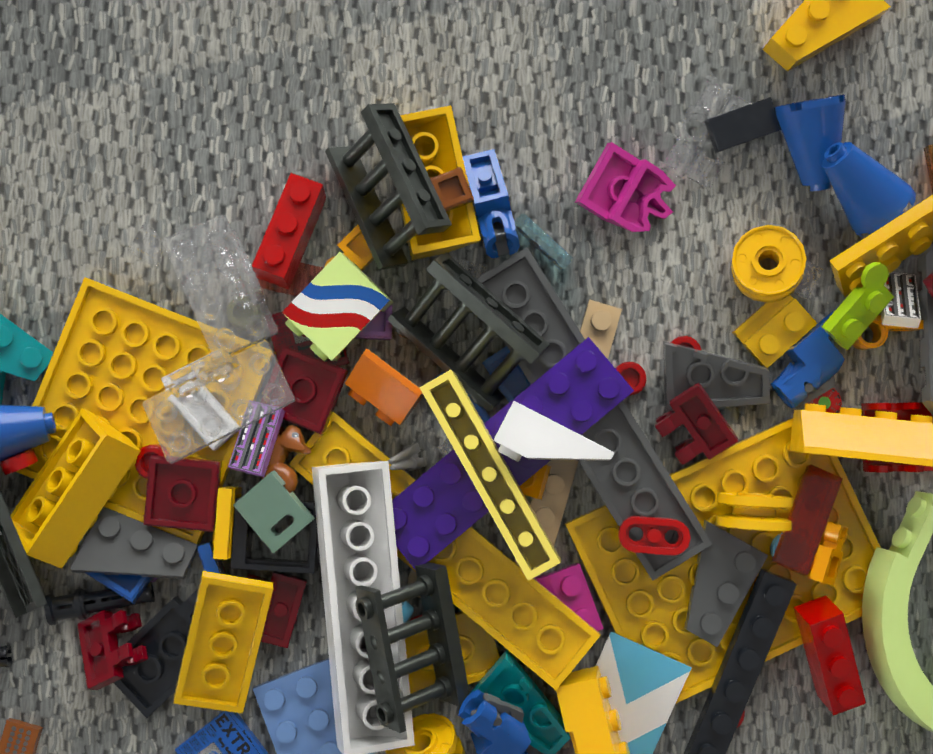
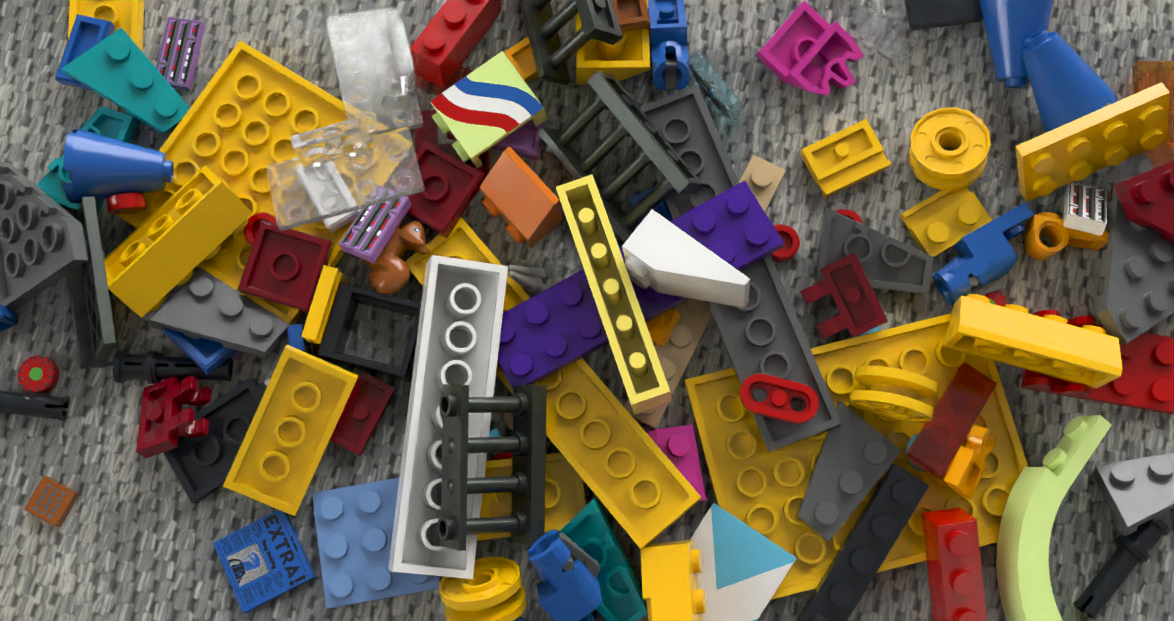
camera: 15 degrees right, 10 degrees down
(28, 296) = (180, 51): none -> tile
(267, 505) = (371, 293): sand green piece -> none
(674, 288) = (845, 158): none -> yellow plate
(860, 306) = (1042, 201): lime hinge -> none

